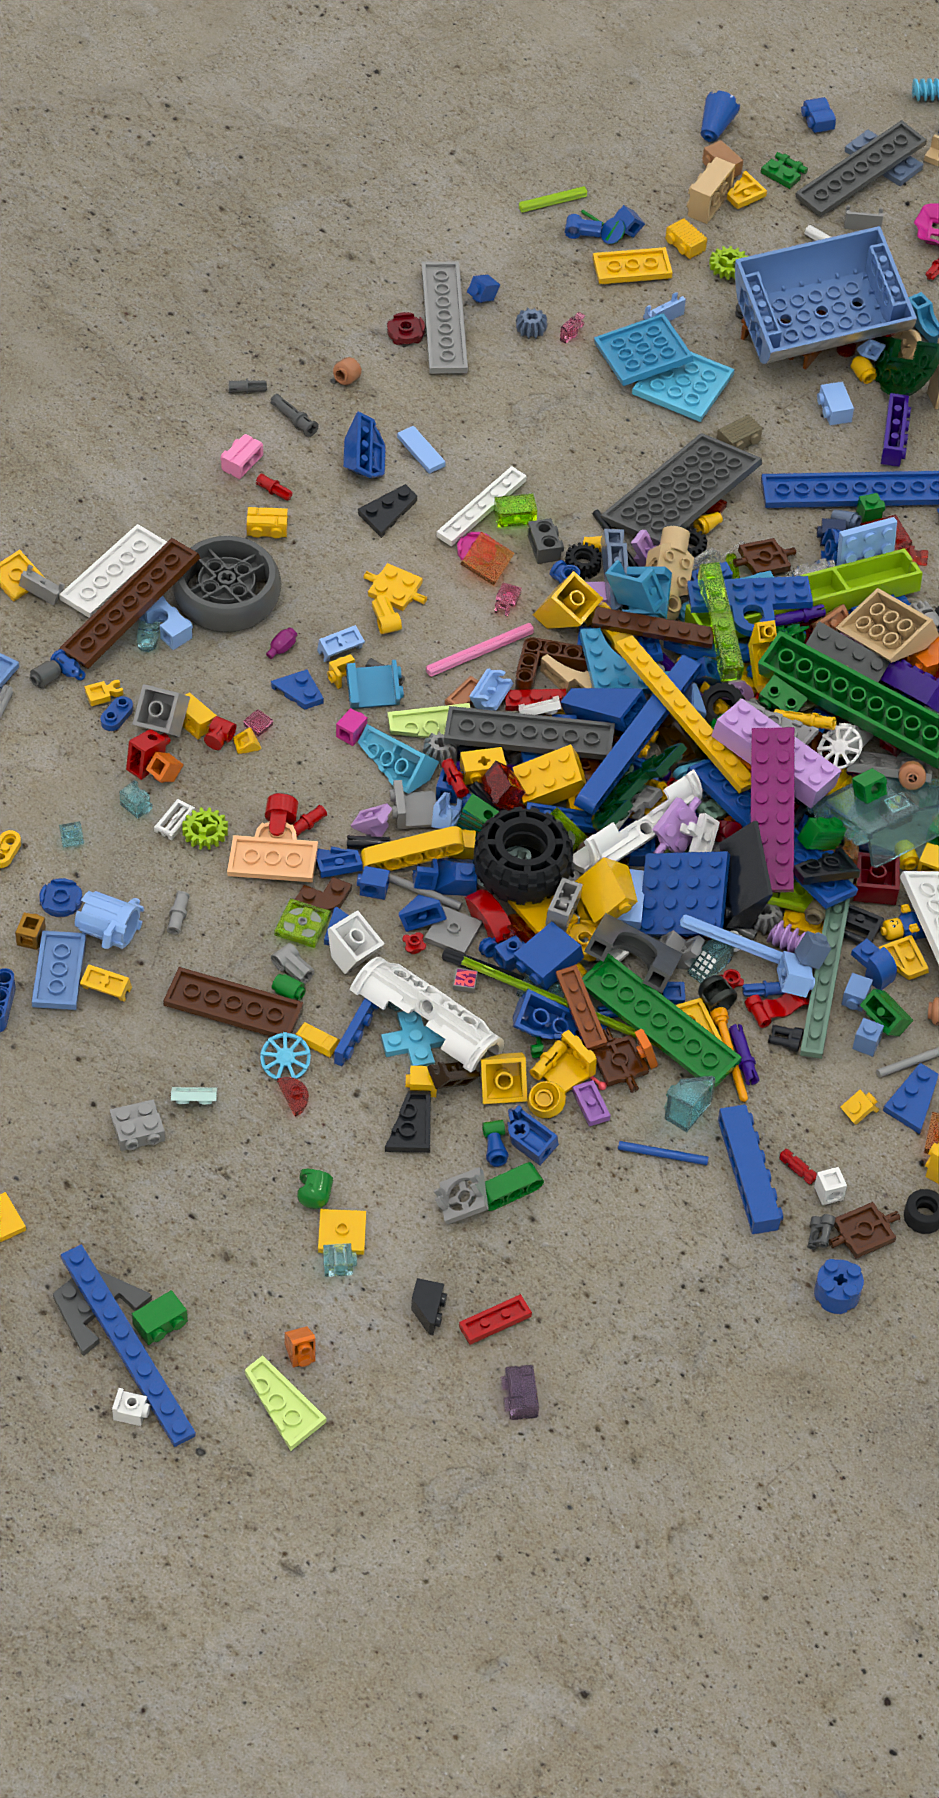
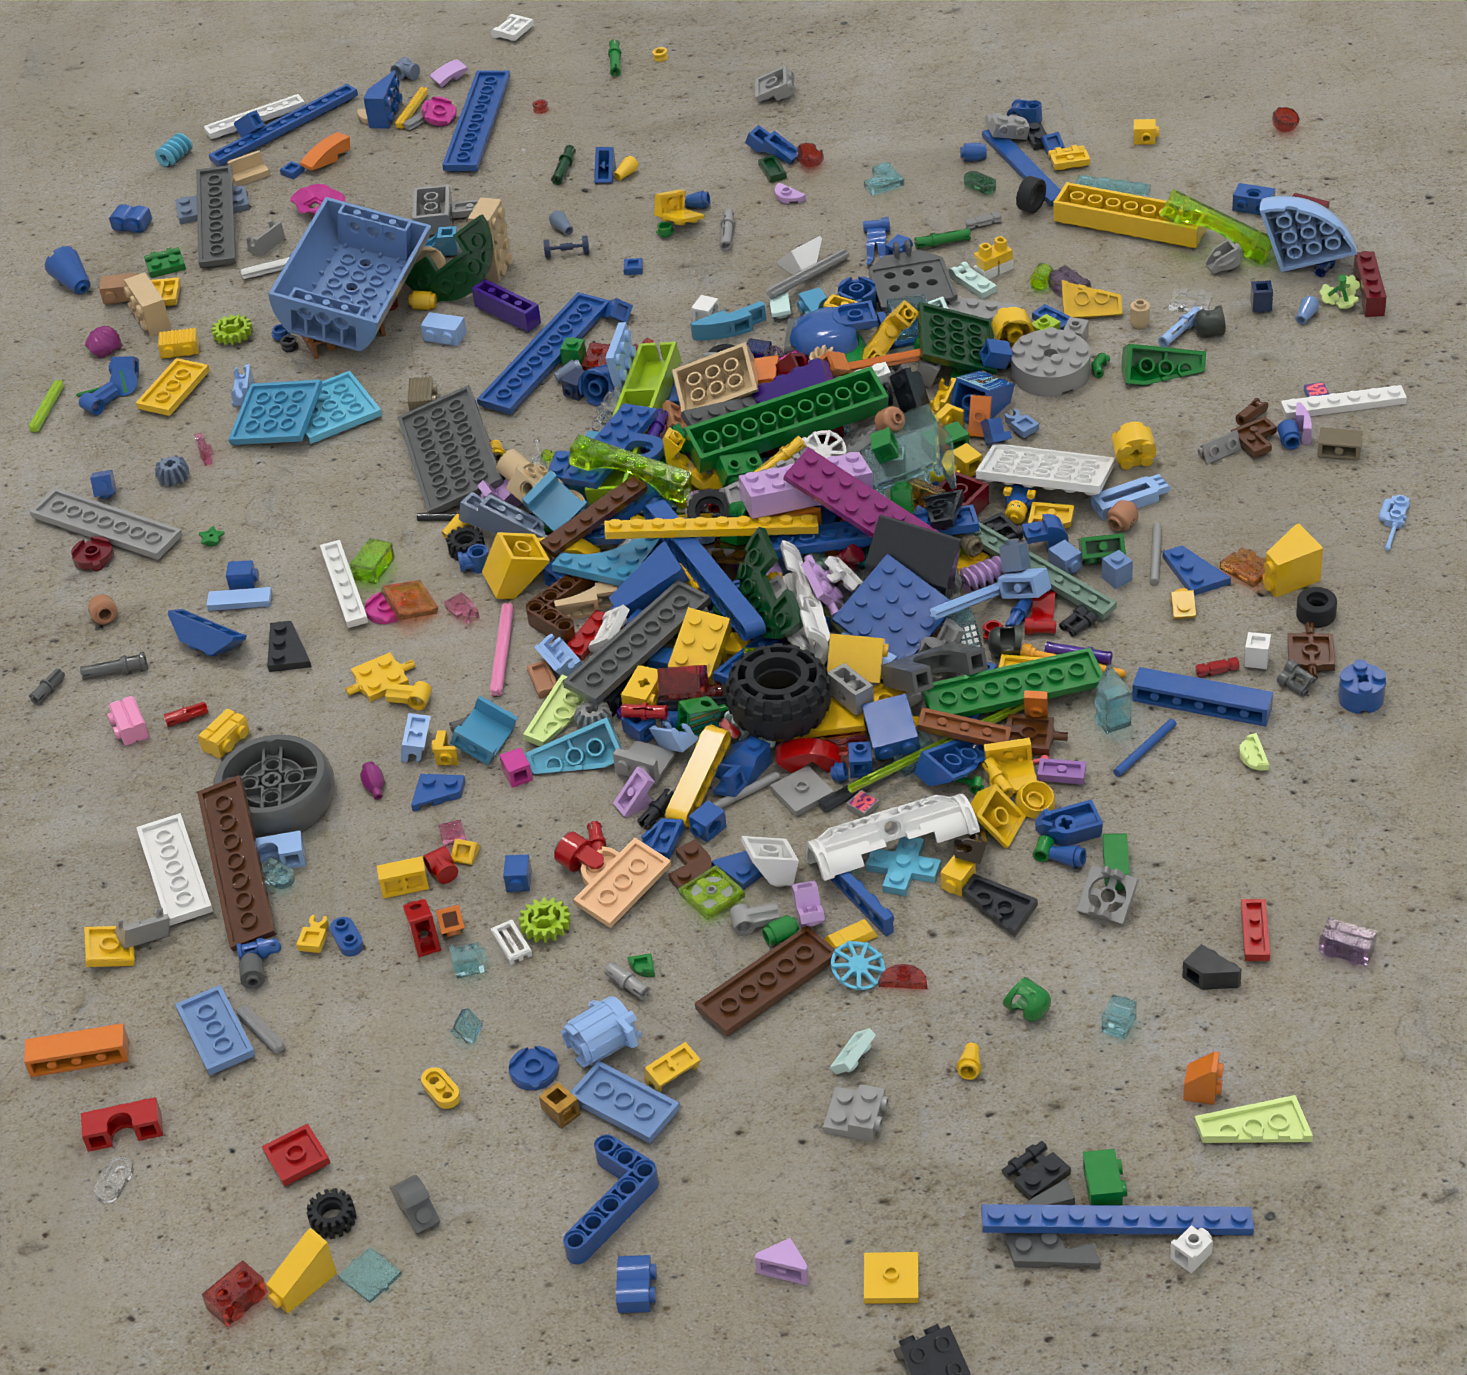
camera: 50 degrees left, 10 degrees down
(148, 1277) = (1040, 1177): none -> black plate
(161, 710) = (385, 890): light grey brick -> none
(203, 915) = (642, 965): none -> green tile
(231, 1177) = (969, 1063): none -> yellow cone
(241, 786) = (517, 873): none -> blue brick
(325, 992) = (807, 904): none -> lavender brick
(342, 1228) = (1082, 1003): yellow plate -> none
(414, 948) = (795, 822): red plate -> none
(421, 912) = (770, 797): blue slope -> none
(443, 435) = (241, 575): none -> blue brick
(477, 391) = (211, 537): none -> green plate
(545, 541) = (422, 558): dark grey brick -> none
(639, 592) = (552, 504): dark azure panel -> none
(652, 189) = (103, 341): none -> magenta hair
(705, 1235) = (1253, 754): none -> yellowish green plate
(764, 556) = (563, 432): reddish brown plate -> none
(871, 349) = (414, 281): light blue slope -> none

